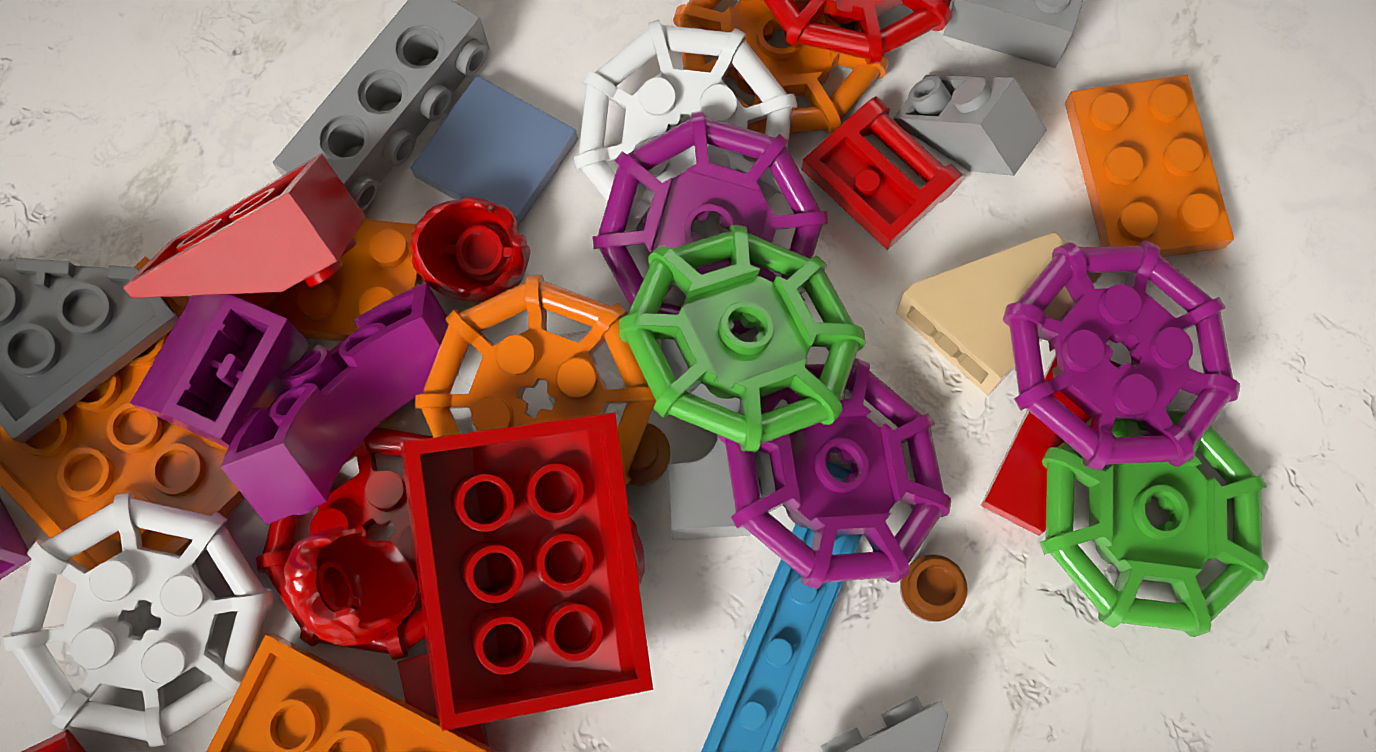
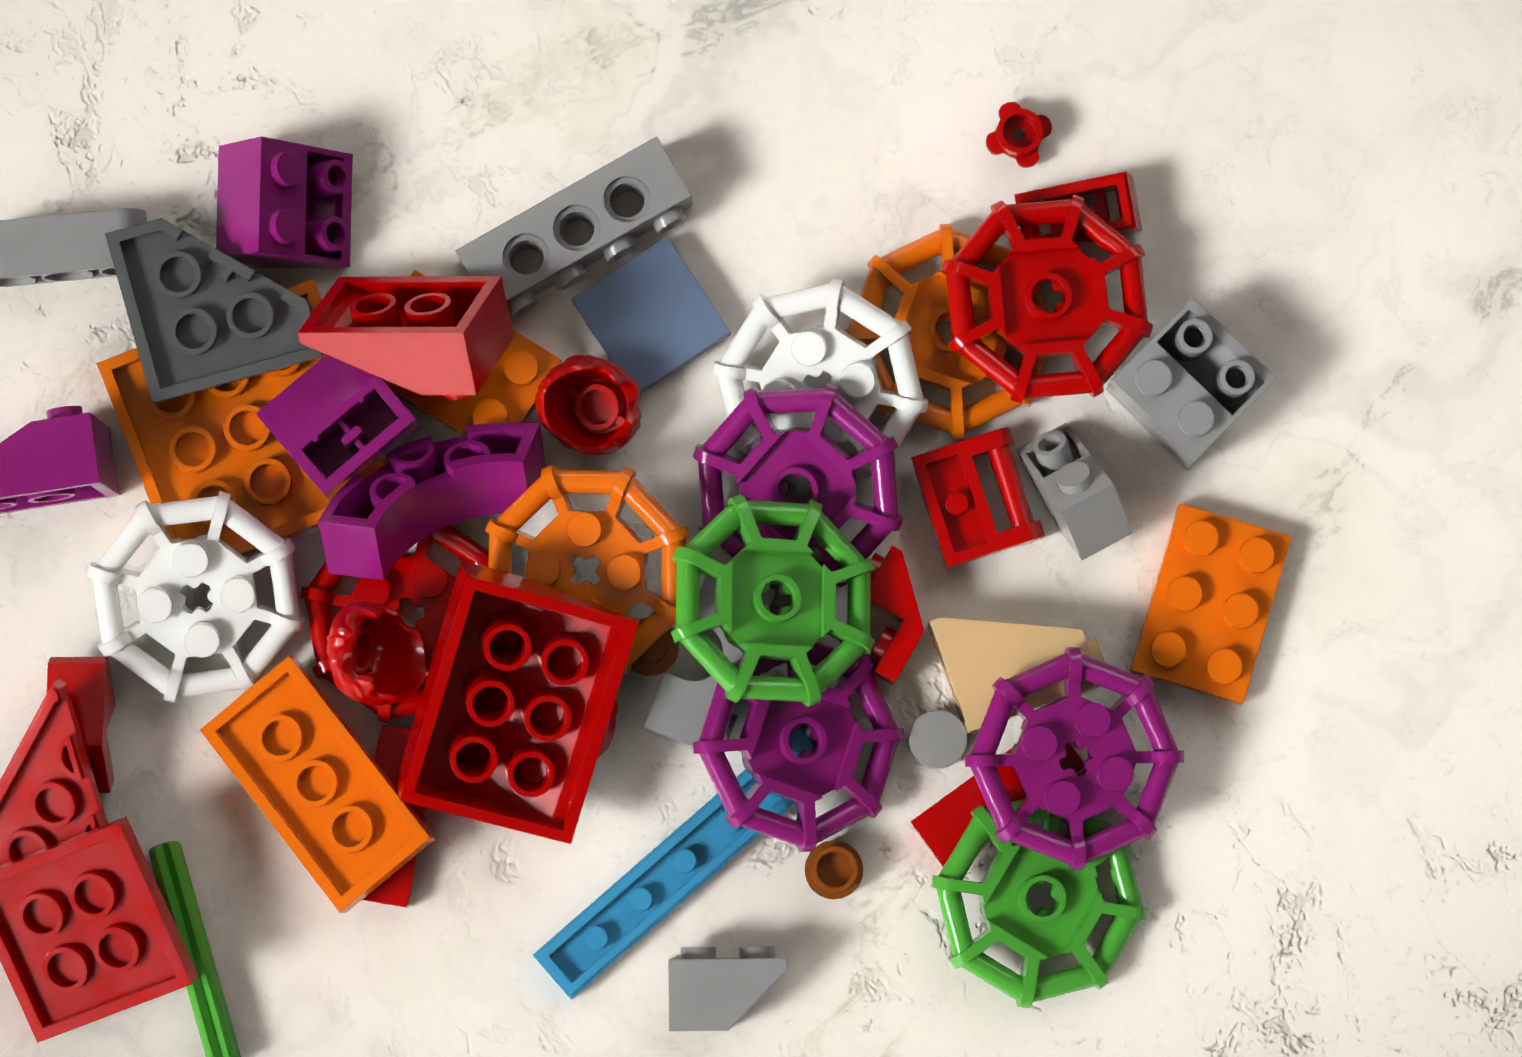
camera: 20 degrees right, 10 degrees up
(89, 199) = (284, 204): none -> magenta slope
(868, 301) = (894, 597): none -> red slope
(965, 410) = (937, 739): none -> light grey tile

